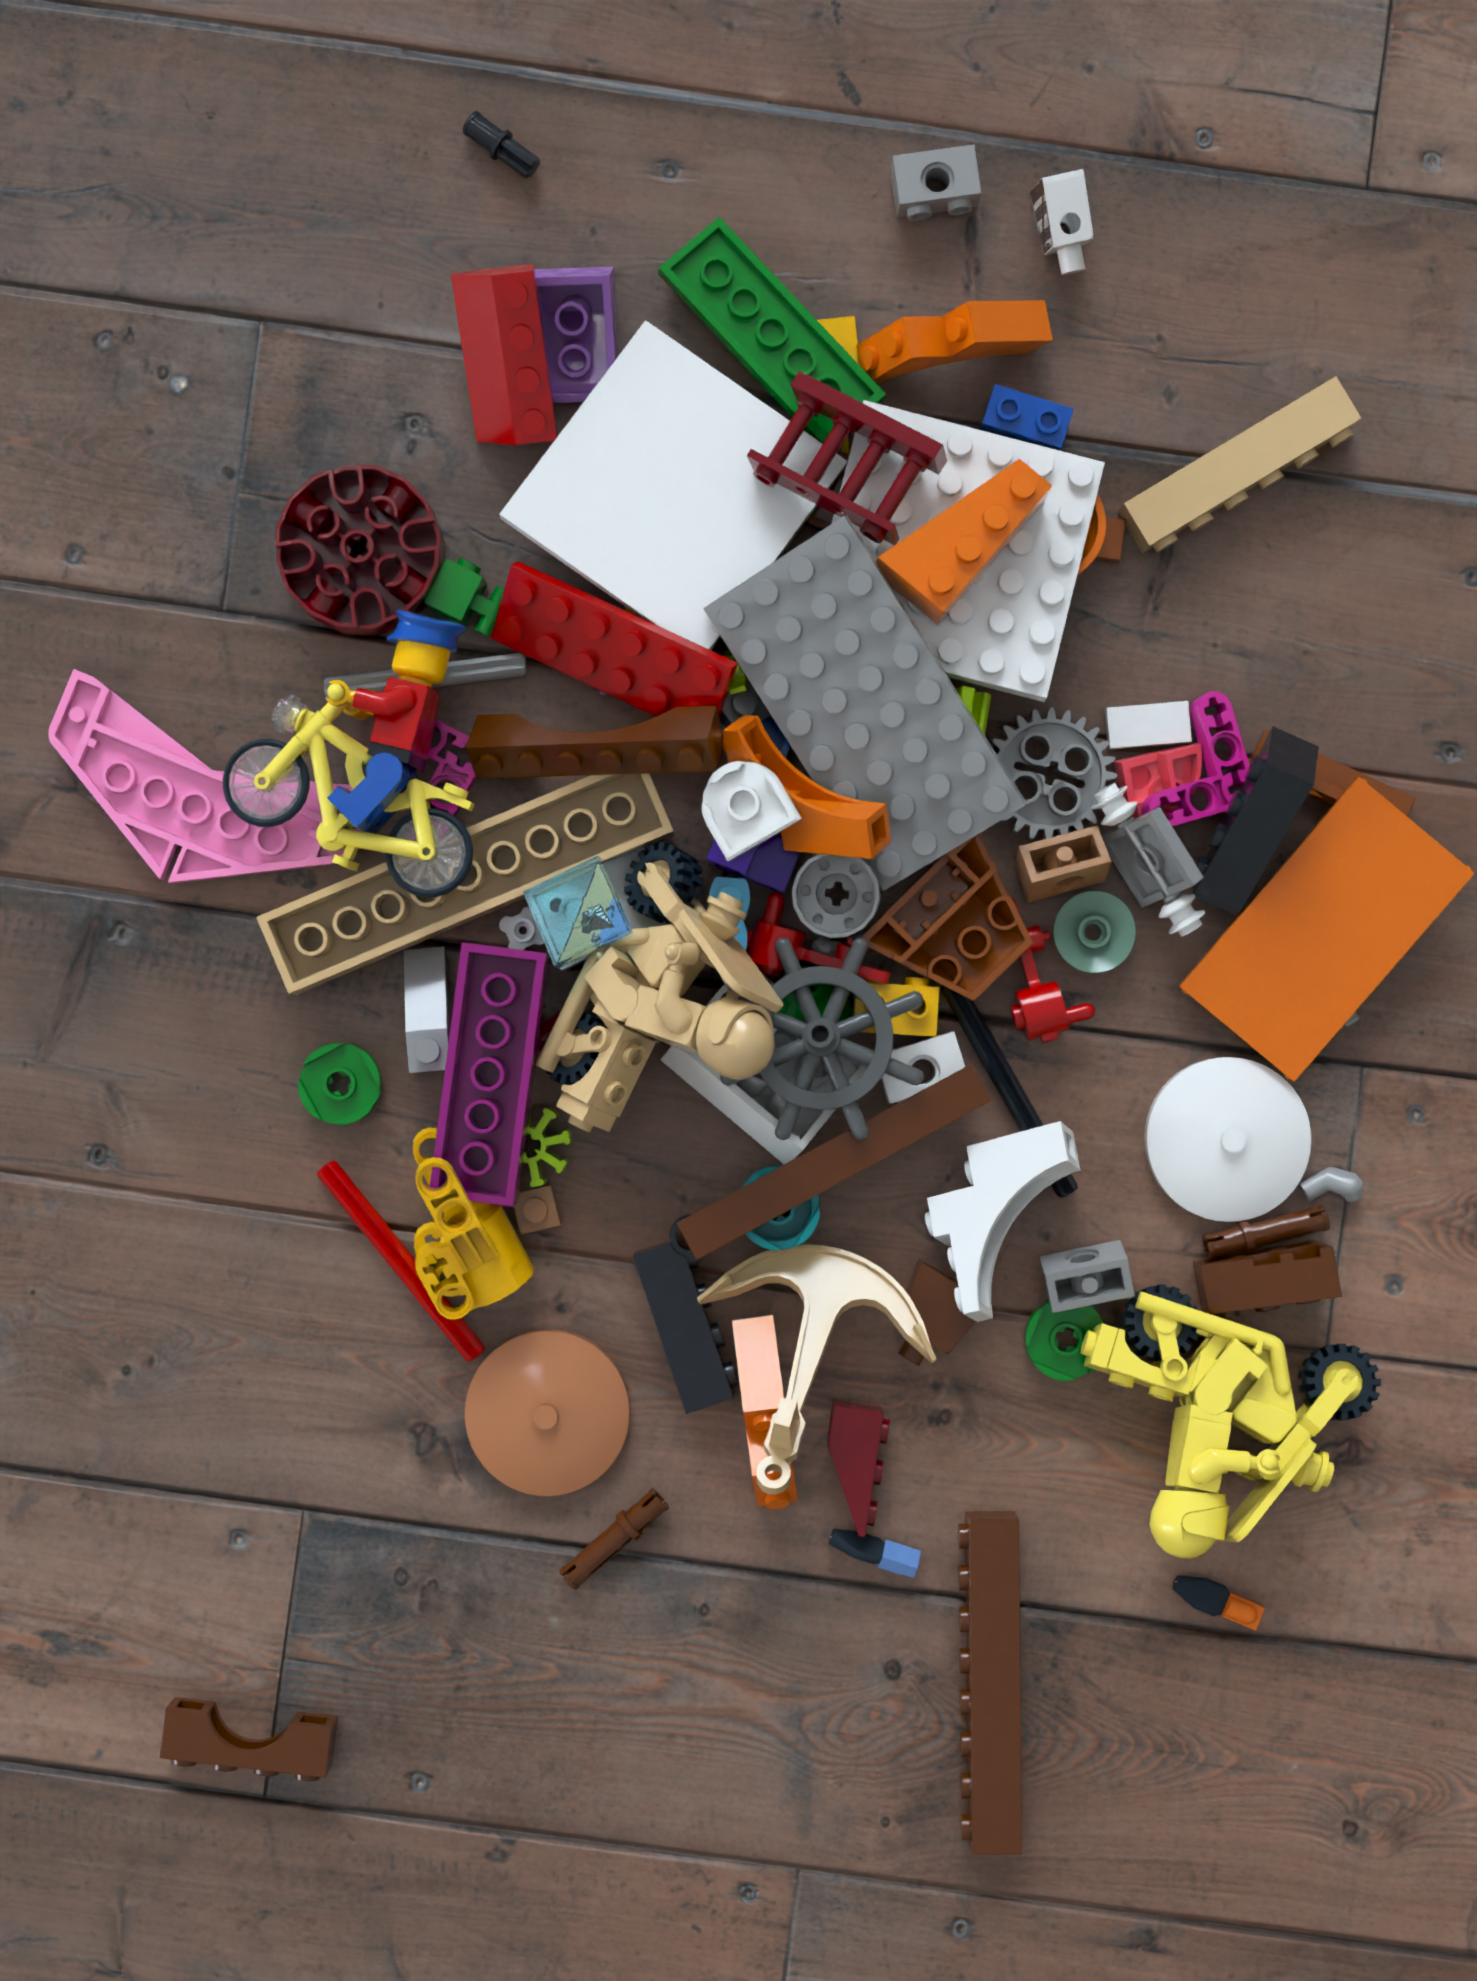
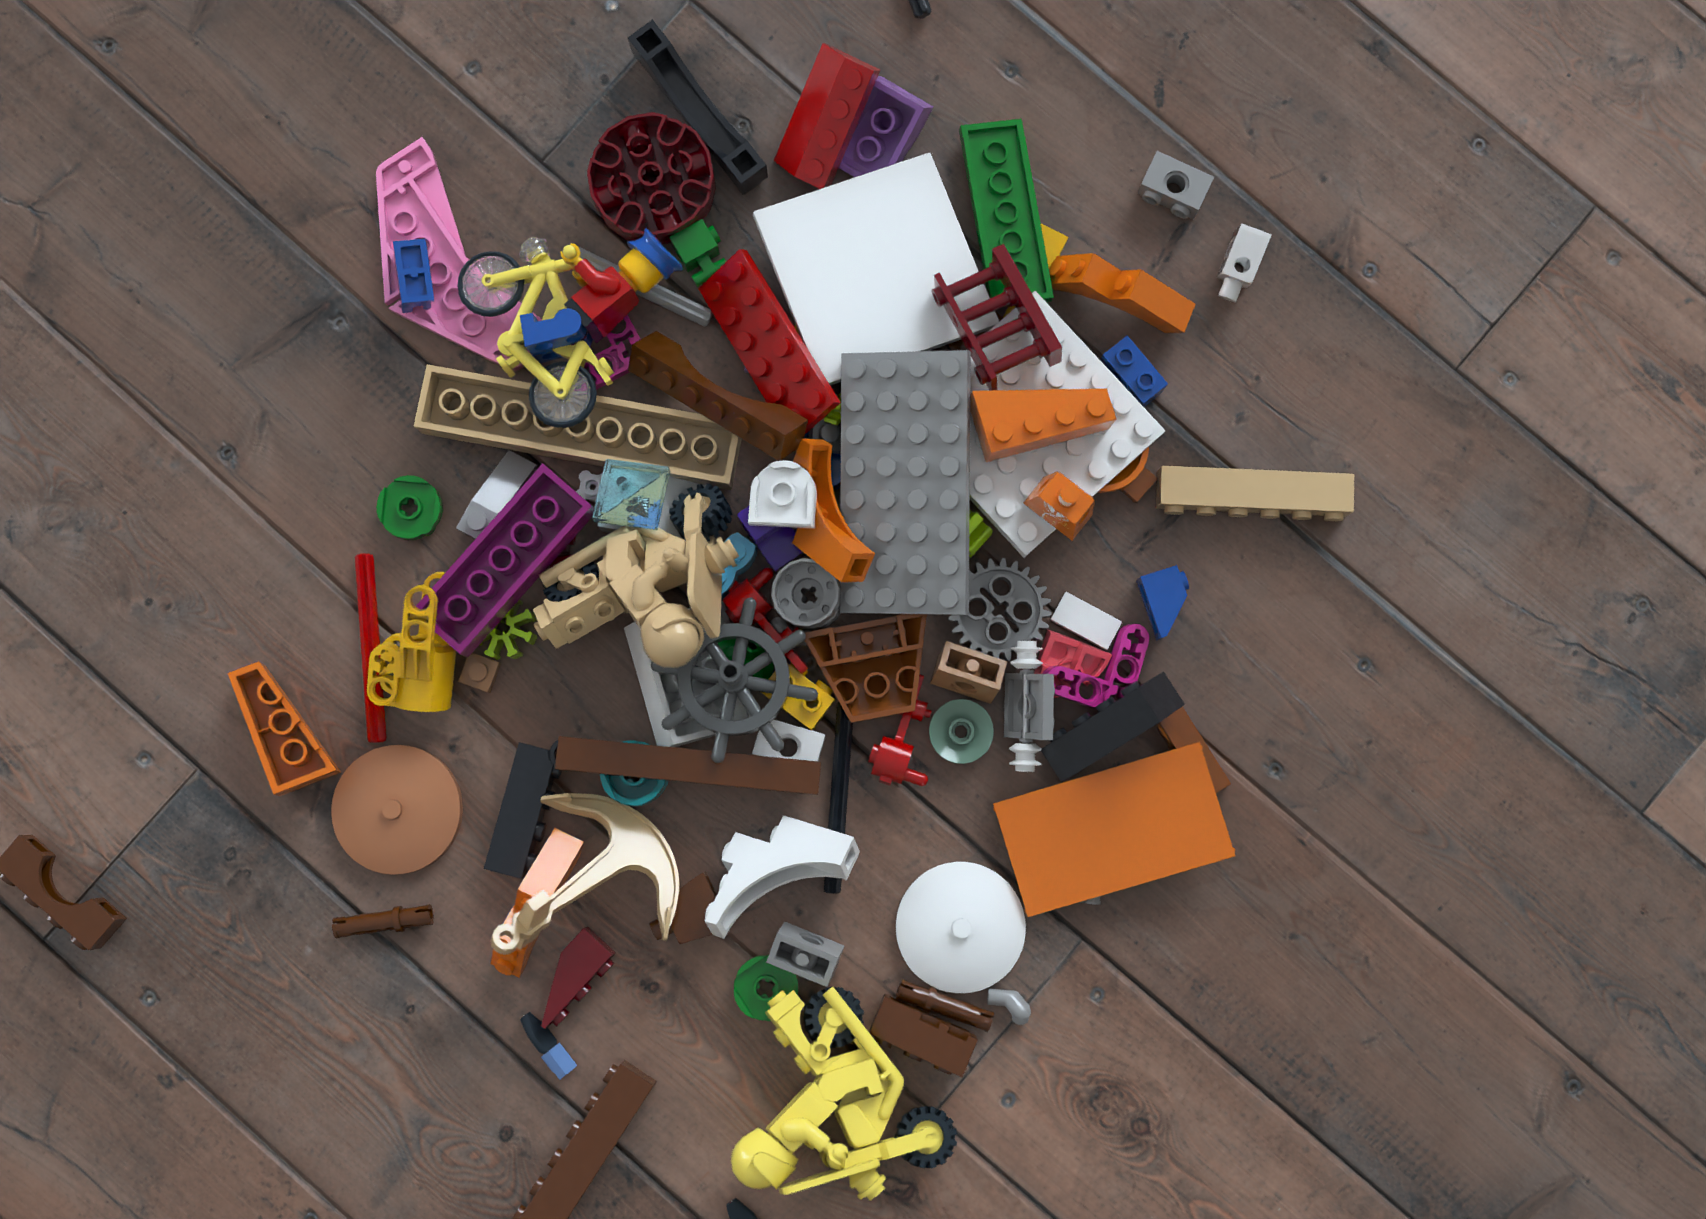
camera: 40 degrees right, 5 degrees down
(172, 828) = (413, 274): none -> blue hinge
(324, 428) = (680, 87): none -> black arch
(373, 1418) = (280, 734): none -> orange wedge
(1051, 617) = (1061, 504): none -> orange torso
(1216, 647) = (1163, 597): none -> blue slope

